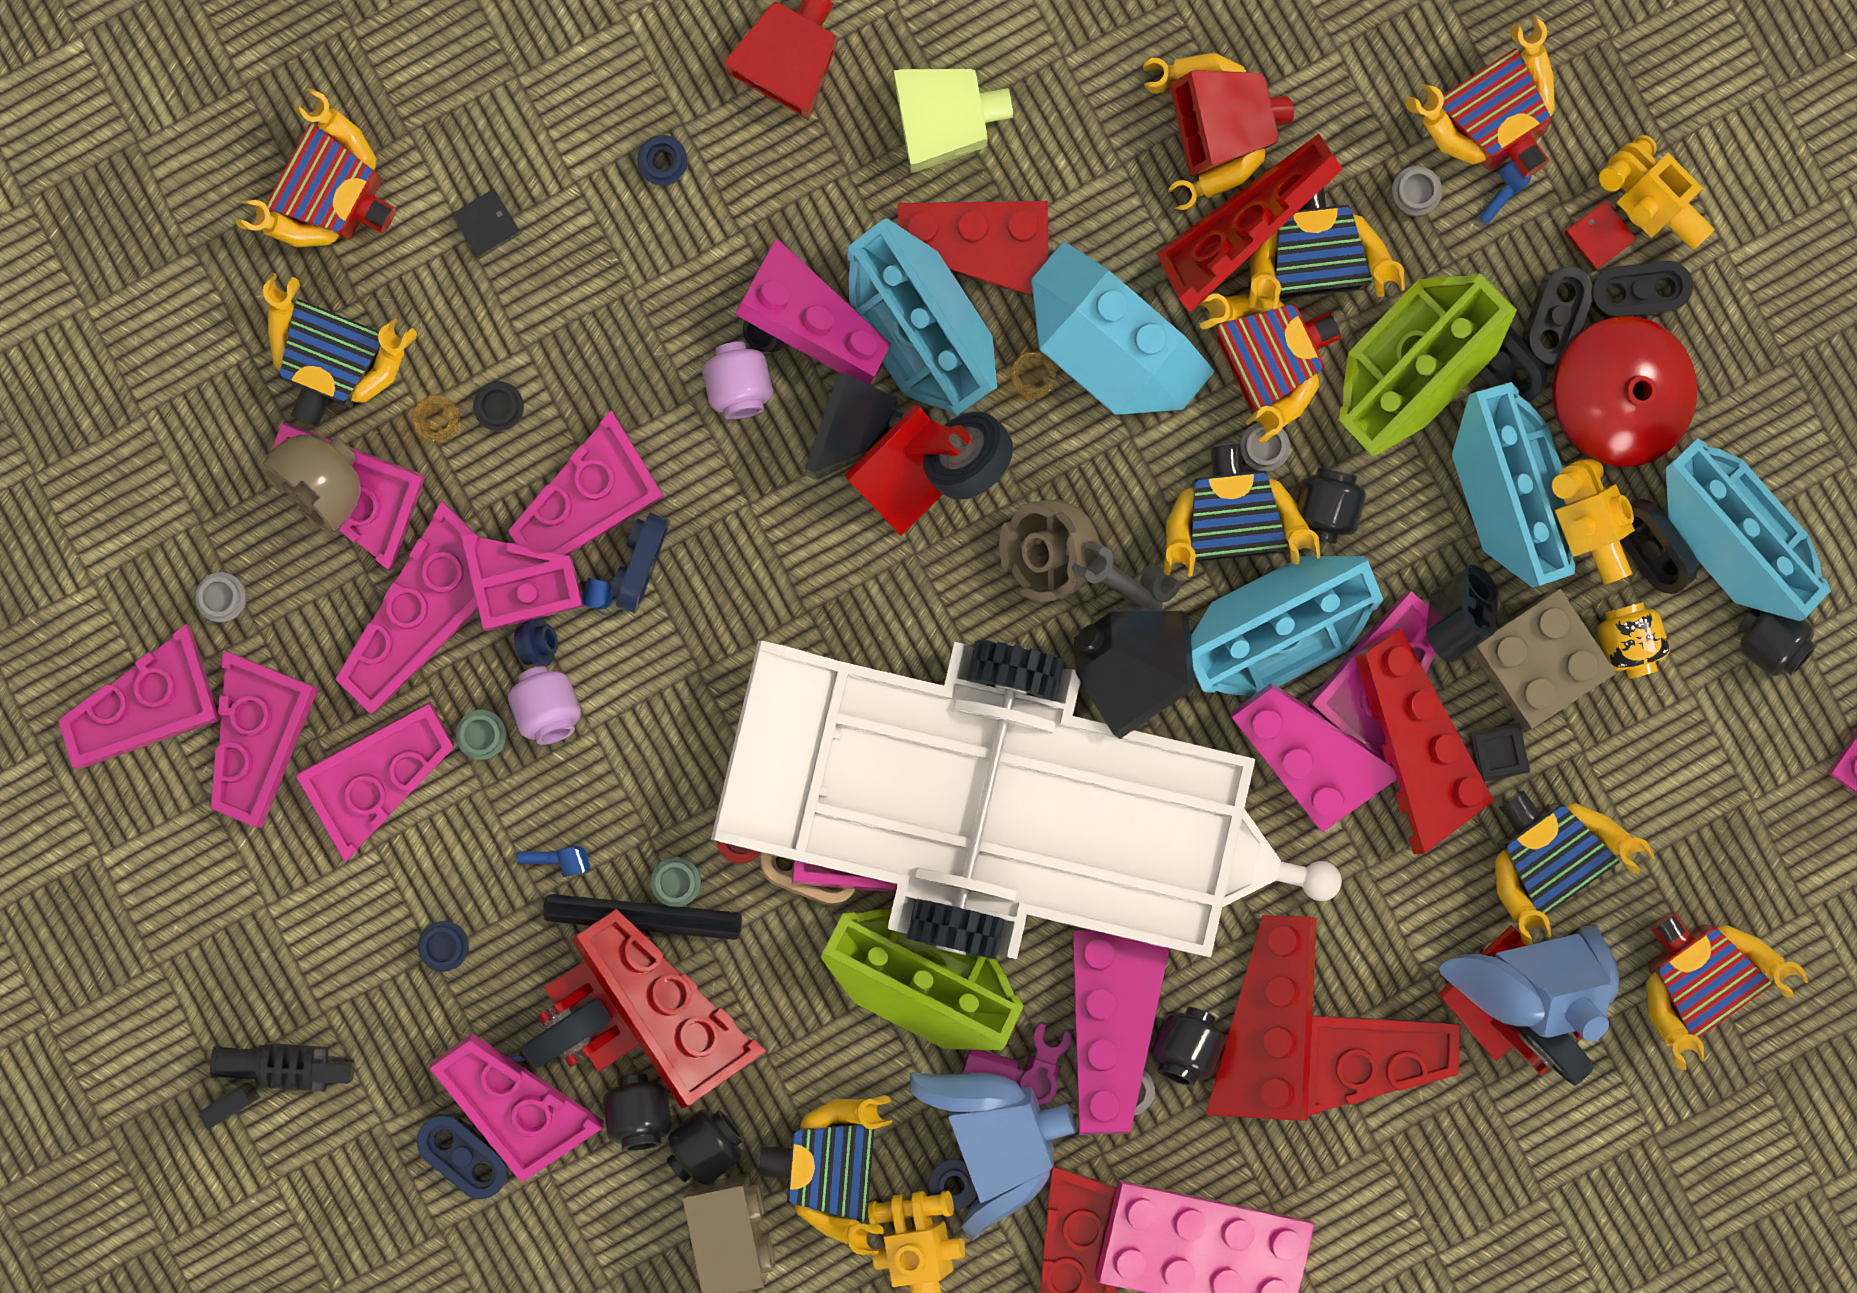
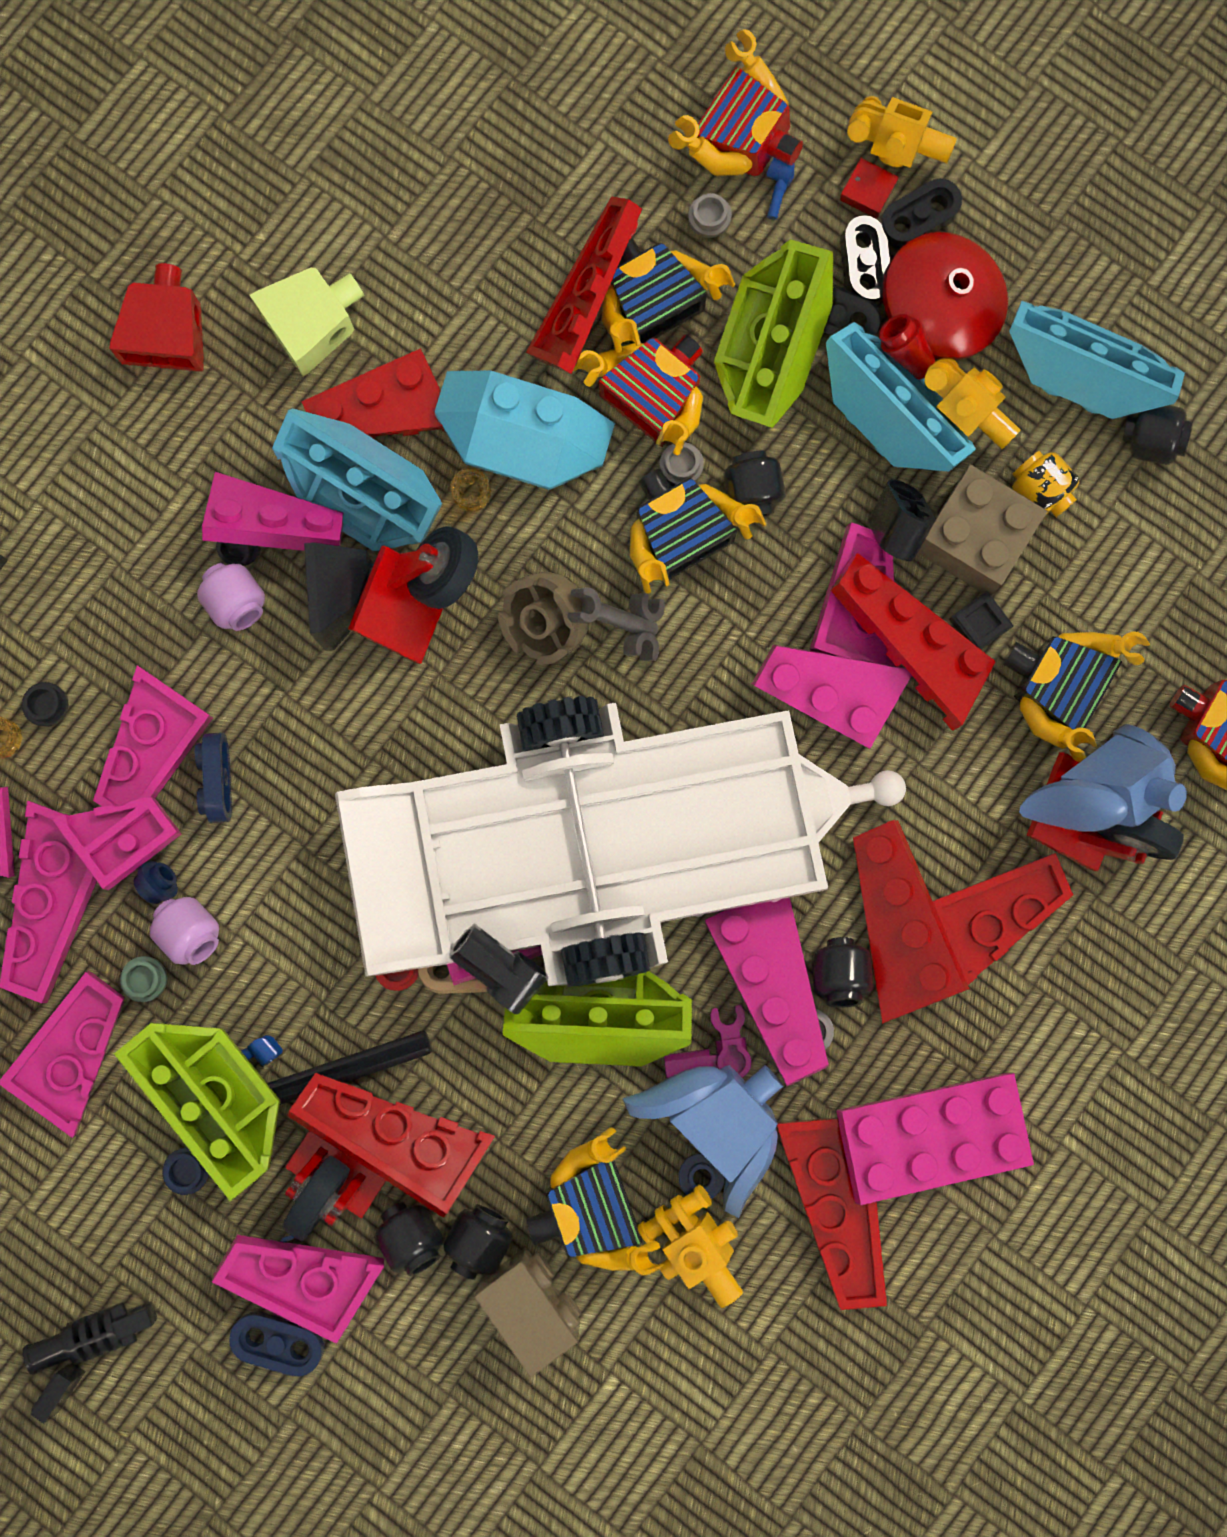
camera: 25 degrees left, 5 degrees down
(500, 887) = (207, 1098): none -> lime wedge
(597, 594) = (191, 821): blue hand -> none
(656, 146) = (88, 442): dark blue plate -> none
(676, 881) = (358, 1028): sand green plate -> none
(851, 901) = (508, 975): none -> black piece
(1135, 665) = (656, 677): black slope -> none
(1221, 119) = (530, 223): red torso -> none
(1283, 624) = (762, 593): medium azure wedge -> none
(1555, 429) = (906, 344): none -> red cone
(1656, 546) = (1026, 405): black plate -> none

